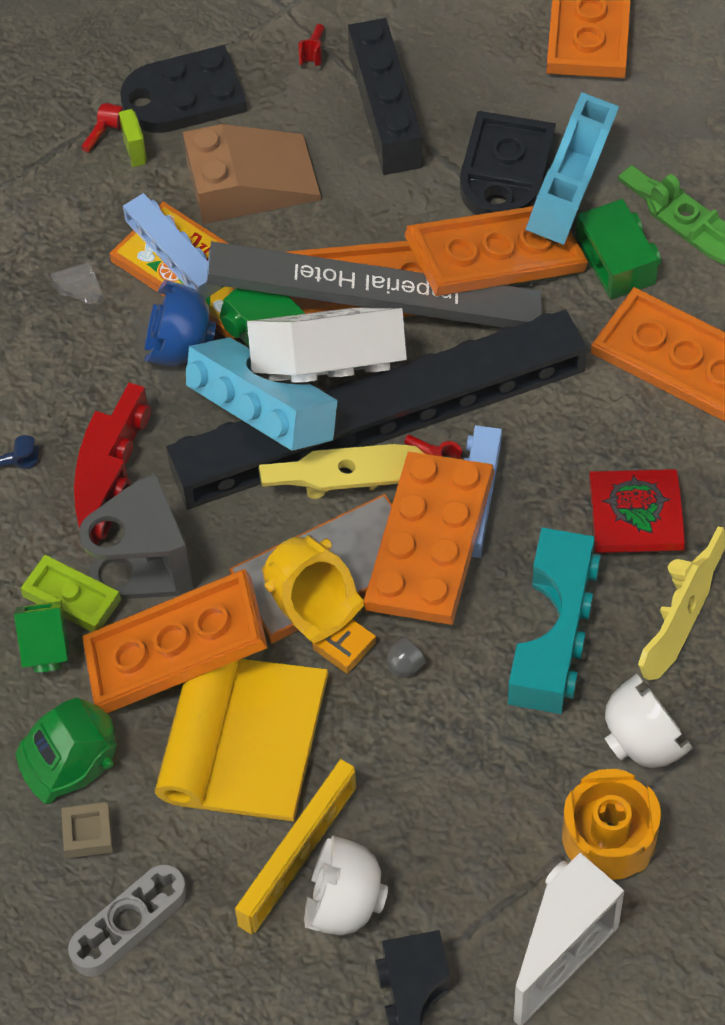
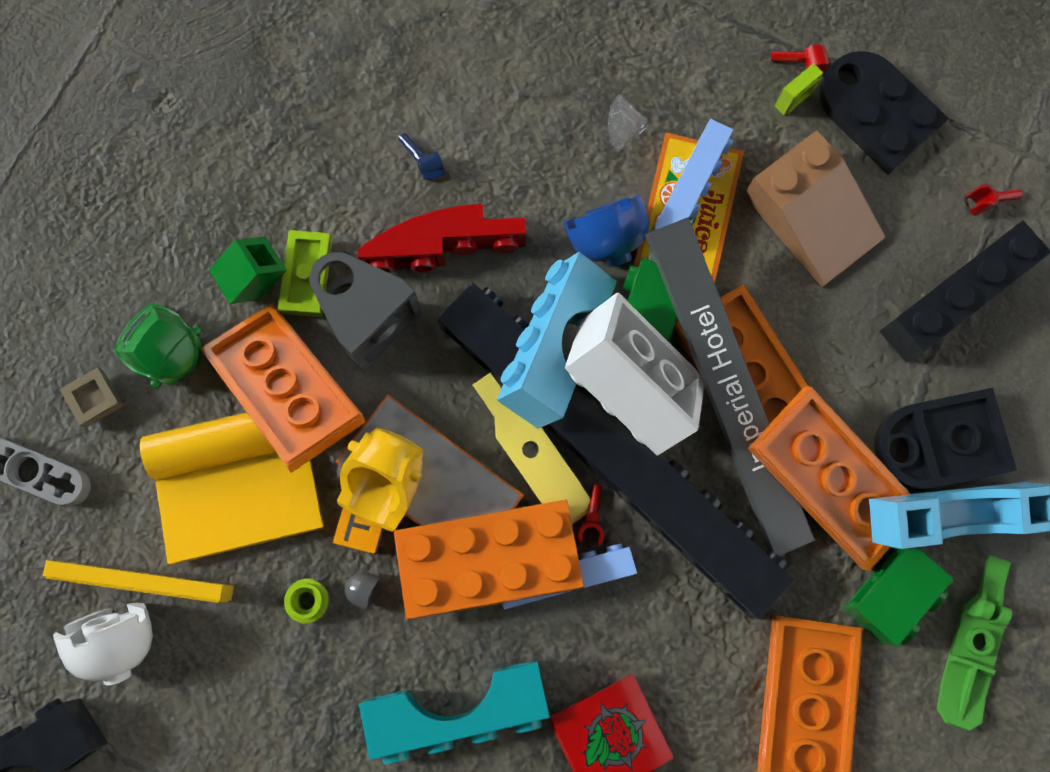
camera: 60 degrees right, 20 degrees up
(387, 701) = (293, 597): none -> lime plate

